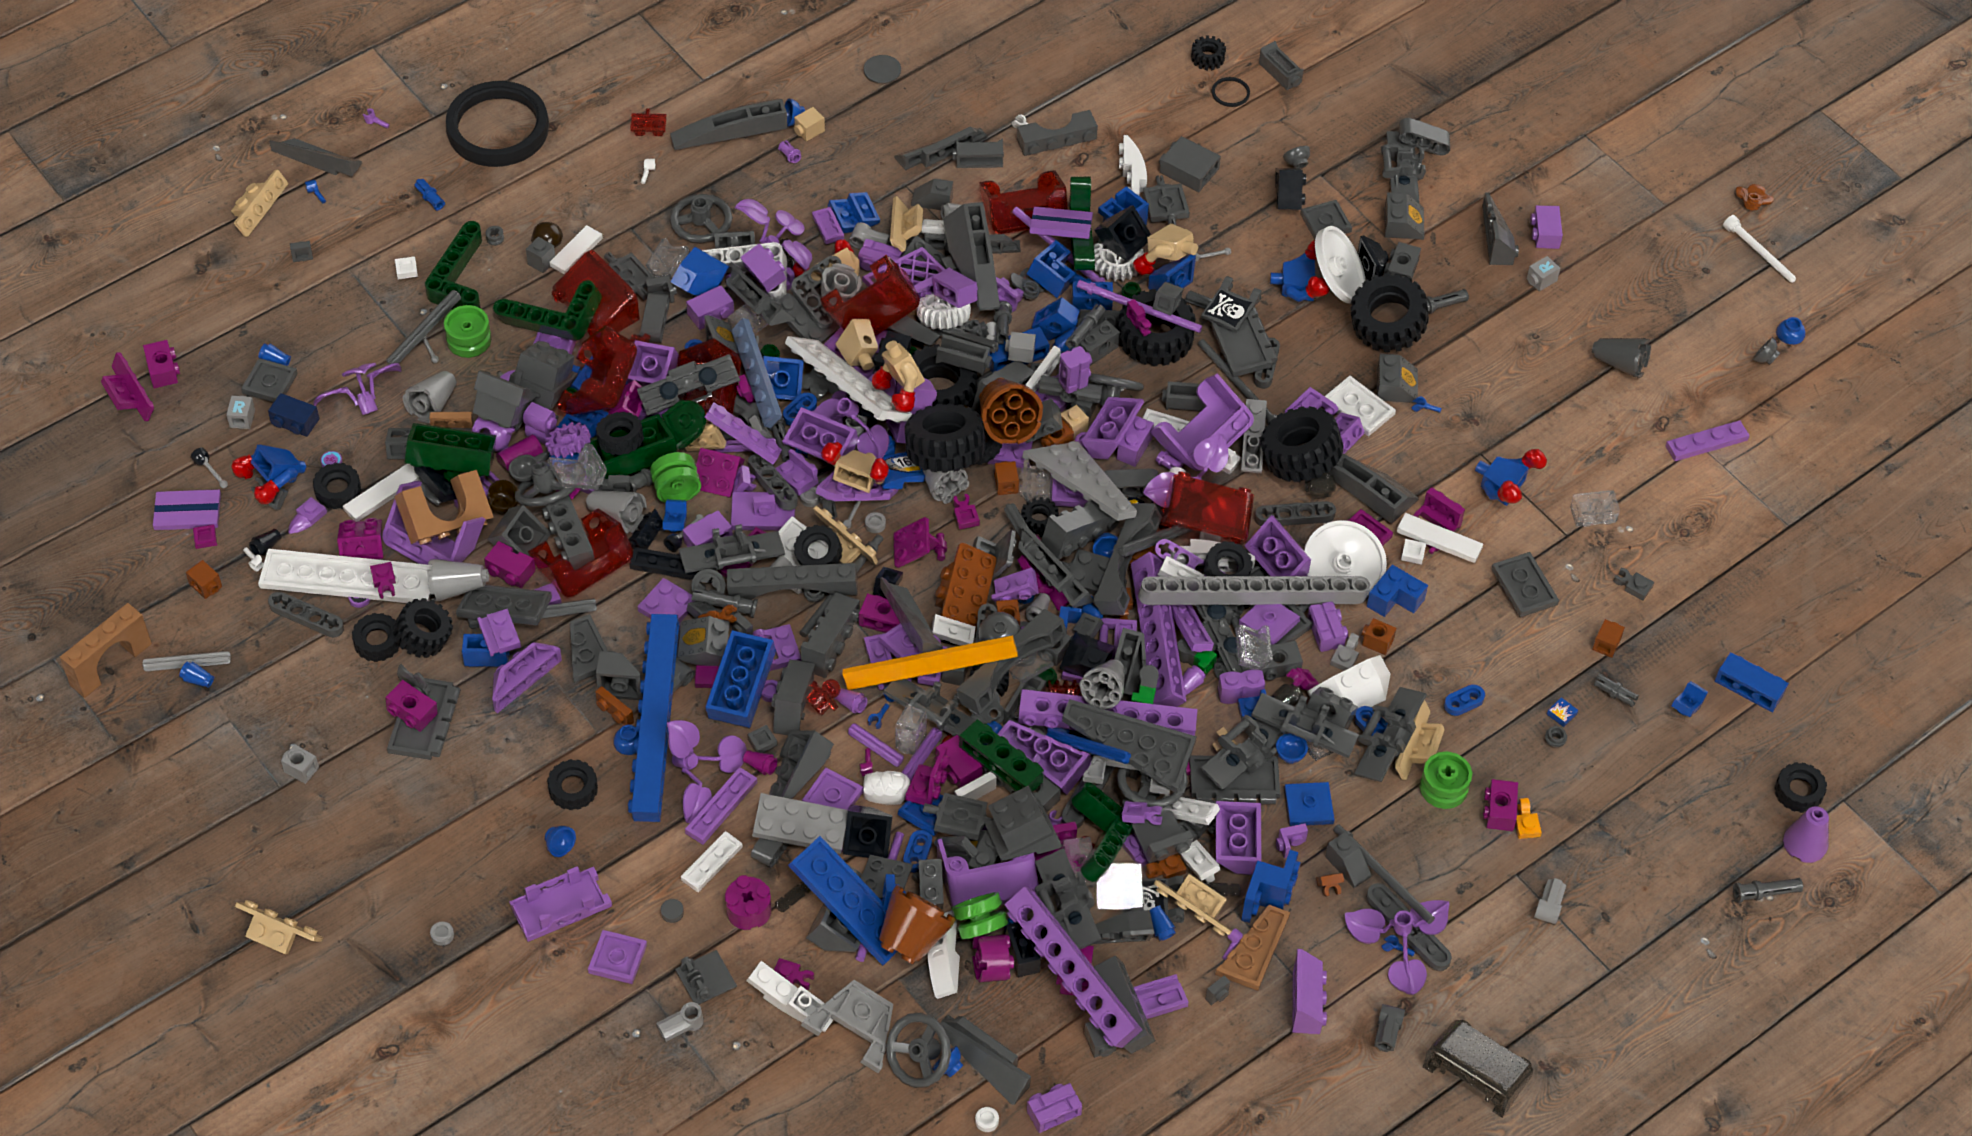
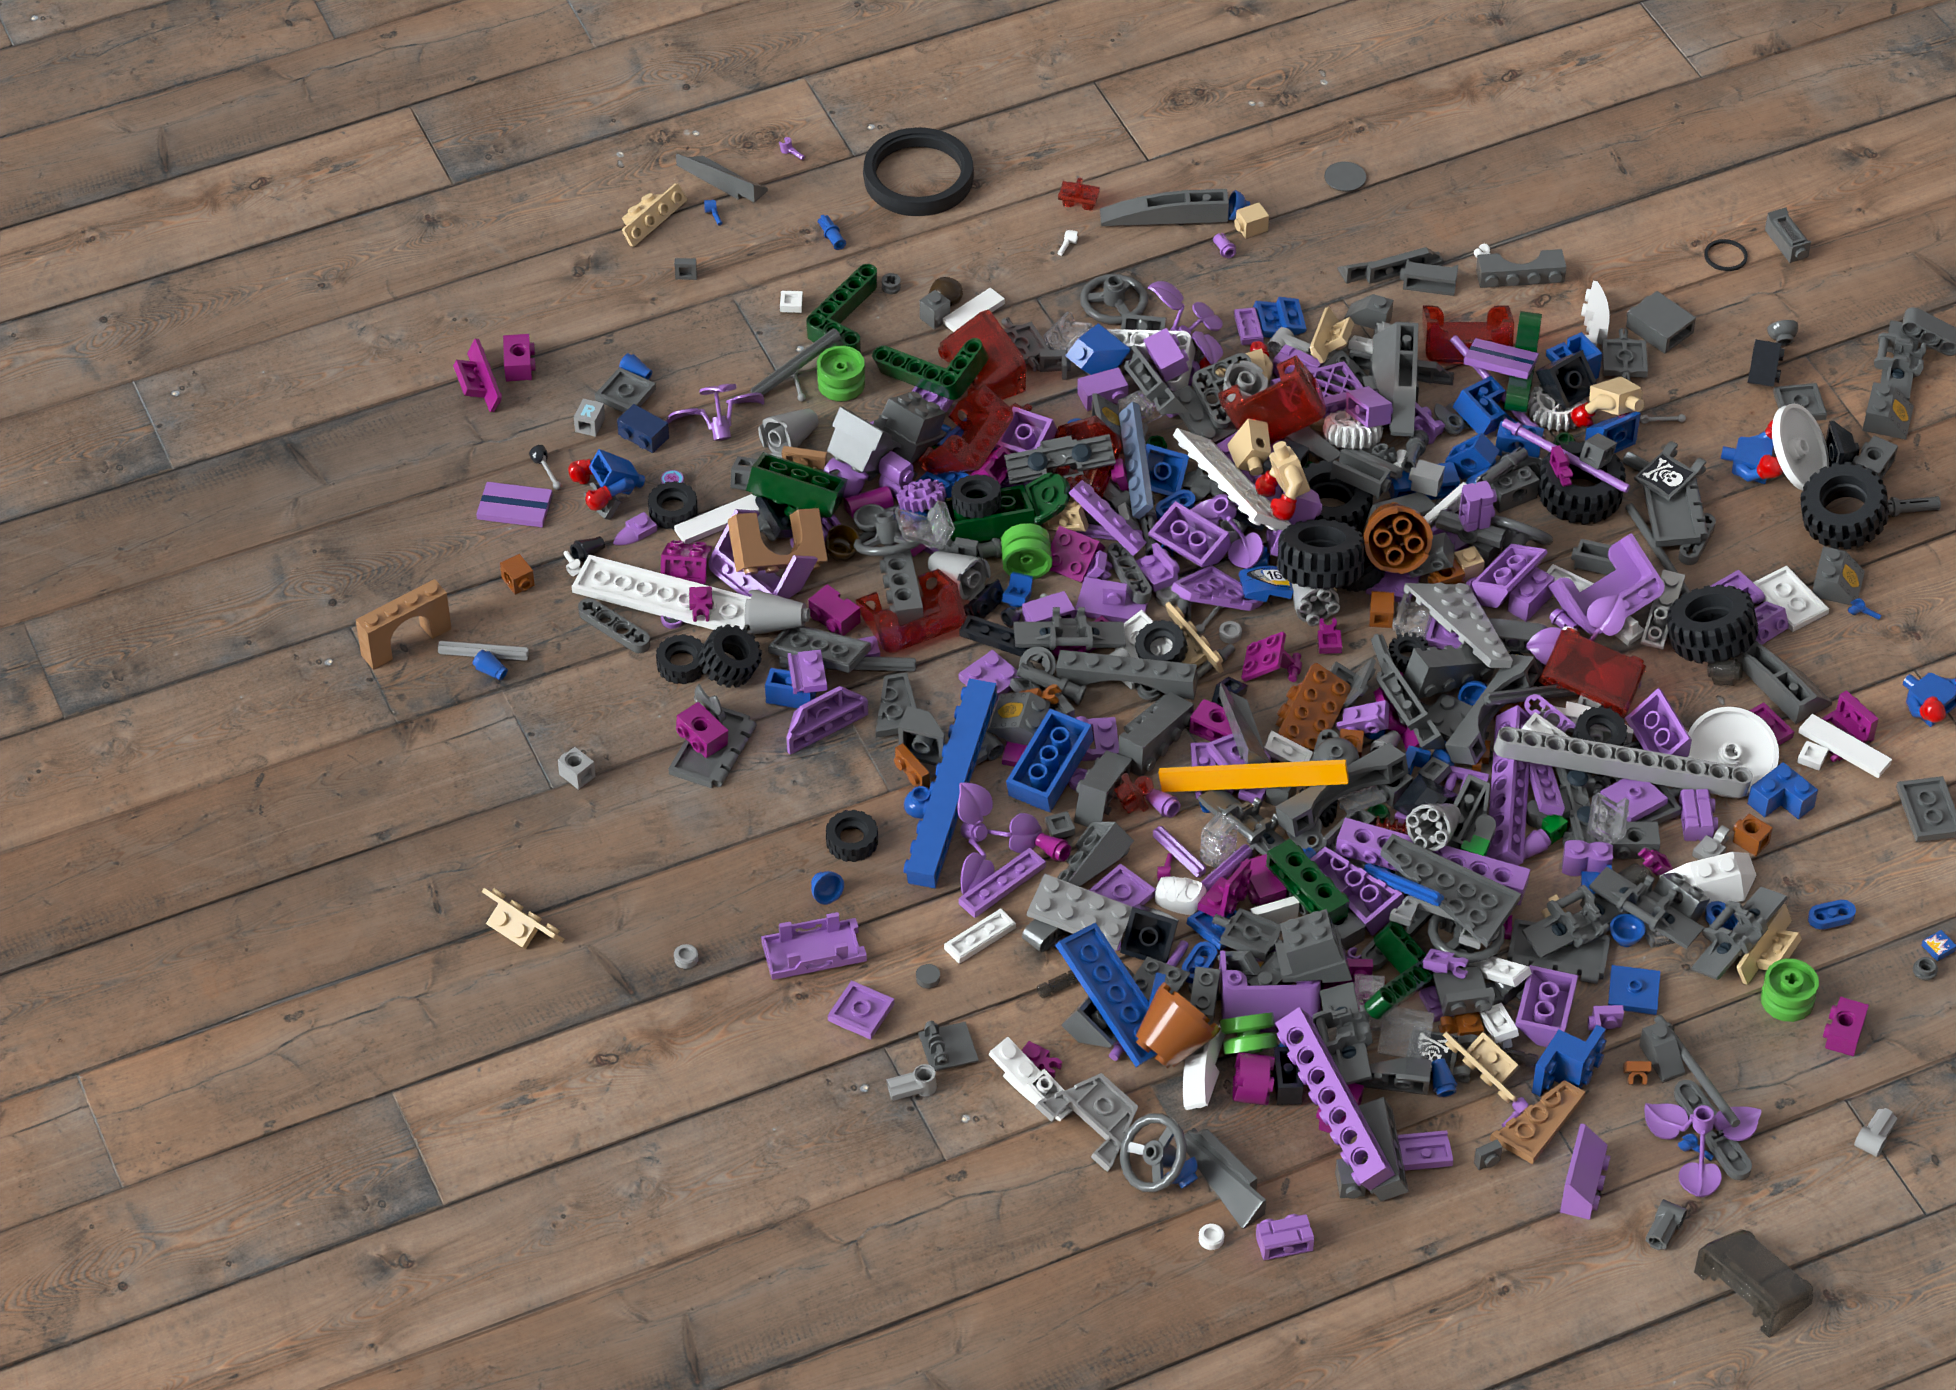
camera: 15 degrees right, 5 degrees down
(205, 536) = (527, 533): magenta tile -> none
(519, 530) = (852, 578): dark grey slope -> none
(655, 316) = (1042, 388): dark grey beam -> none
(748, 902) = (1008, 980): magenta brick -> none
(855, 468) = (1218, 571): tan torso -> none
(878, 716) = (1188, 824): blue hand -> none
(1210, 45) = (1709, 202): black tyre -> none
(1294, 510) = (1691, 693): dark grey beam -> none
(1527, 823) = (1869, 1050): light orange plate -> none

